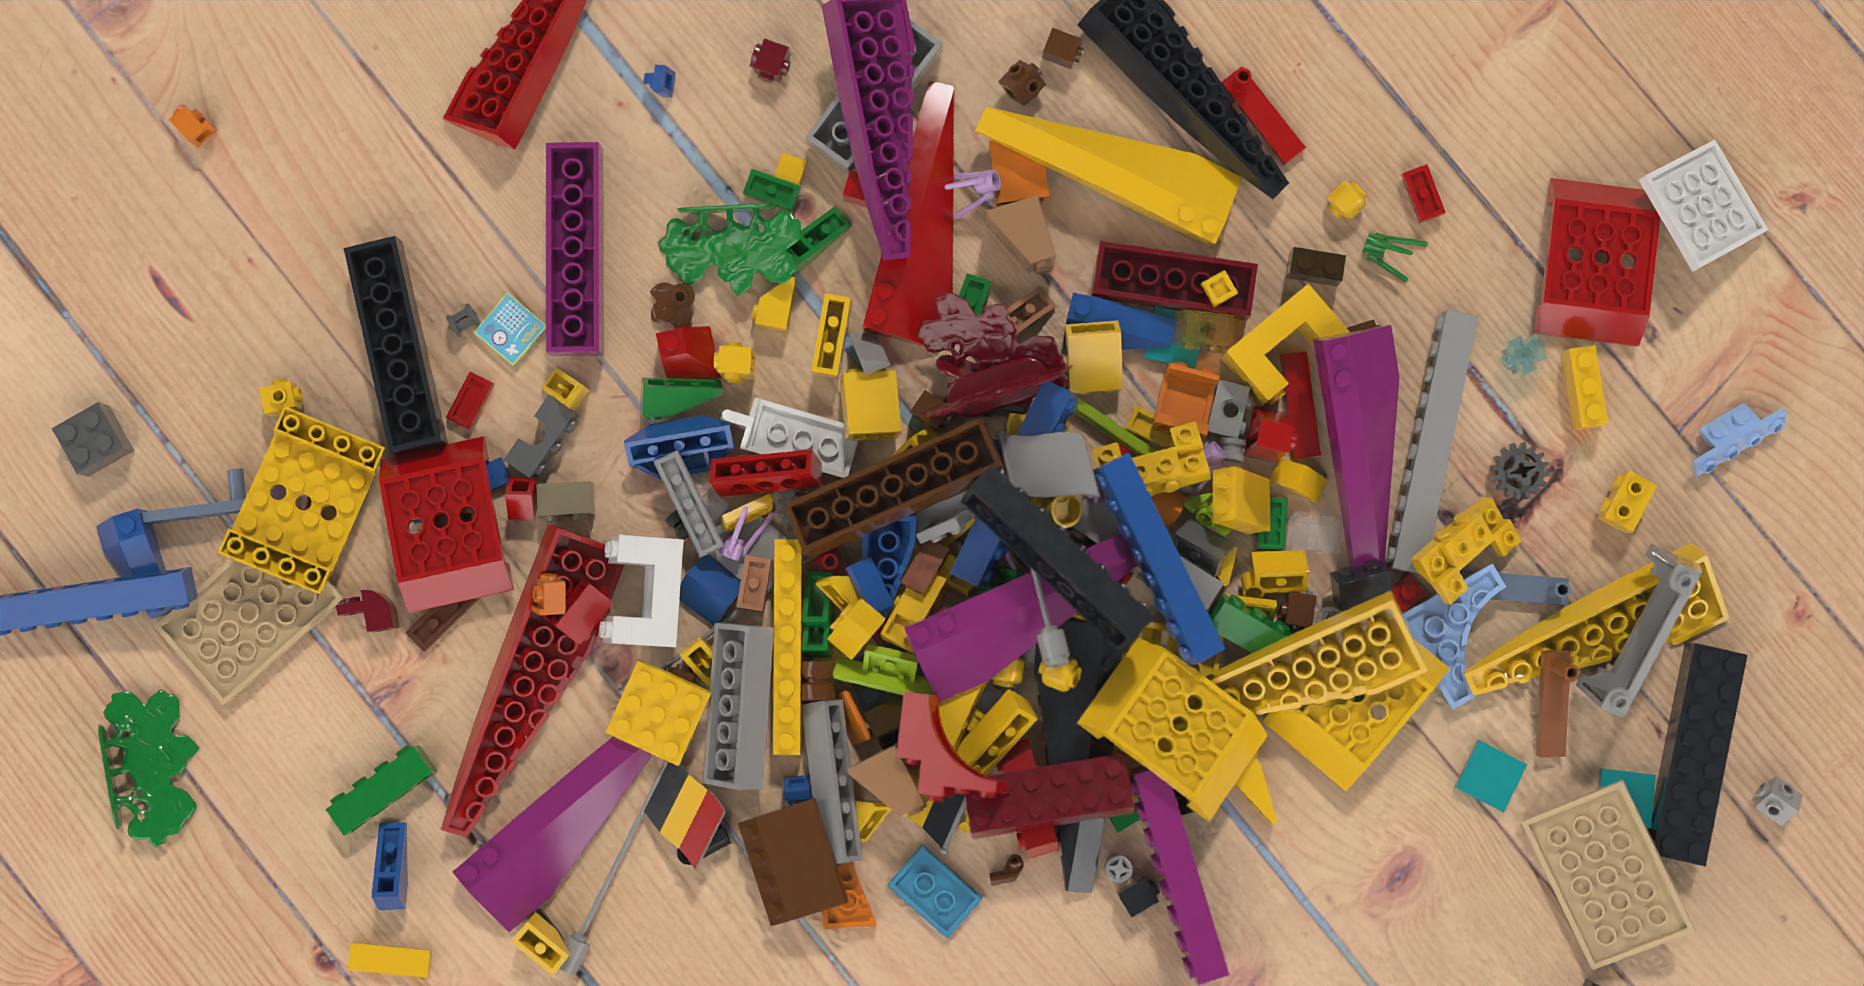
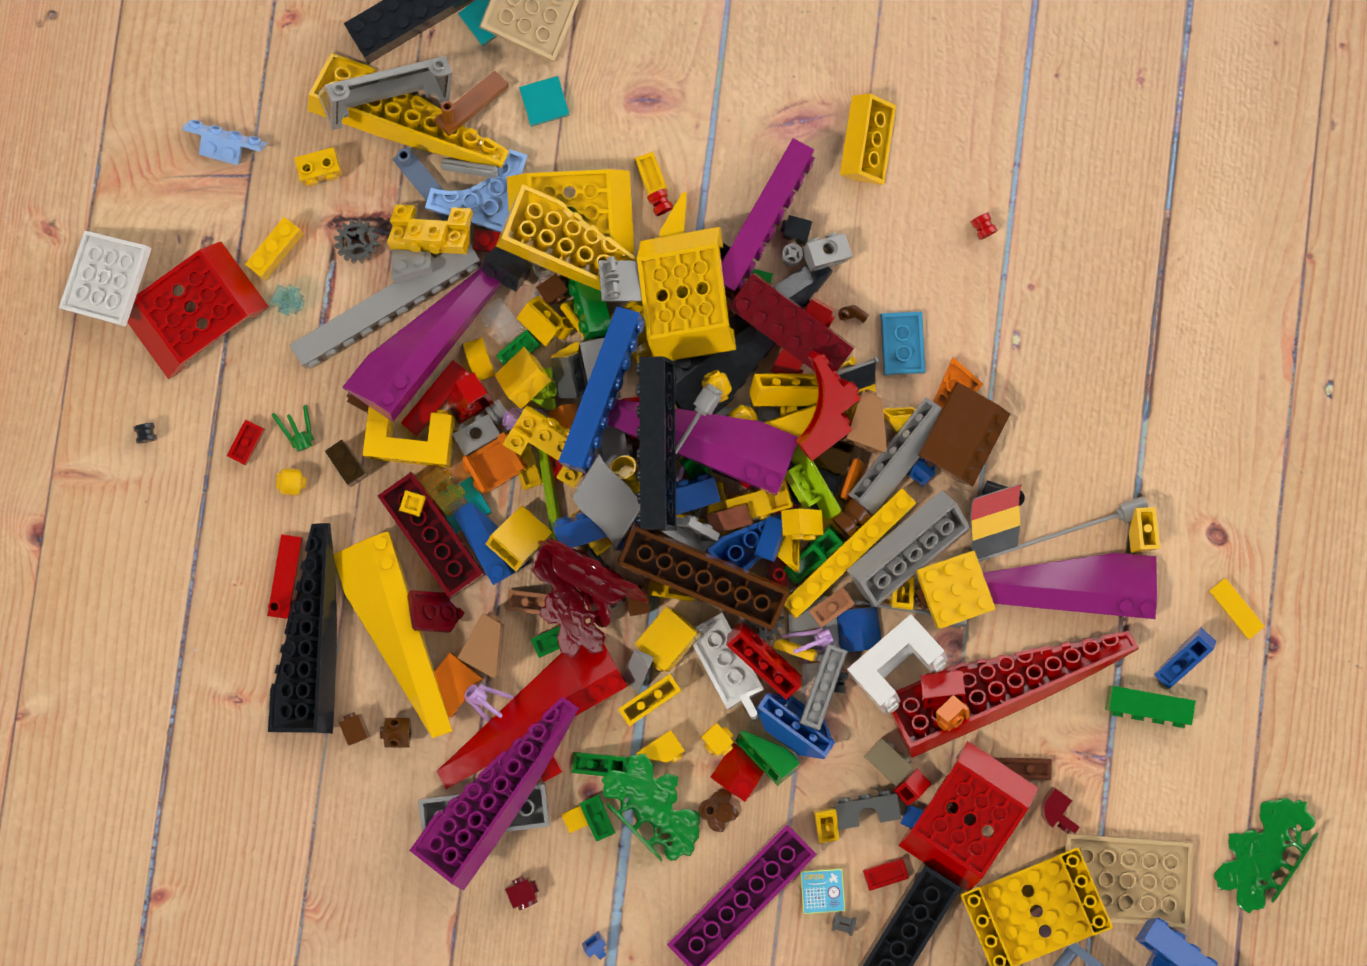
camera: 140 degrees left, 0 degrees up
(1091, 887) = (818, 259): none -> light grey brick
(1101, 214) = (432, 611): none -> dark red tile
(1247, 676) = (619, 280): none -> light grey hinge
(1287, 791) = (660, 202): none -> red wheel
(1323, 809) = (650, 173): none -> yellow tile
(1449, 498) = (410, 264): none -> light grey wing
(1491, 642) = (469, 167): none -> light grey axle
(1519, 110) = (145, 433): none -> black wheel

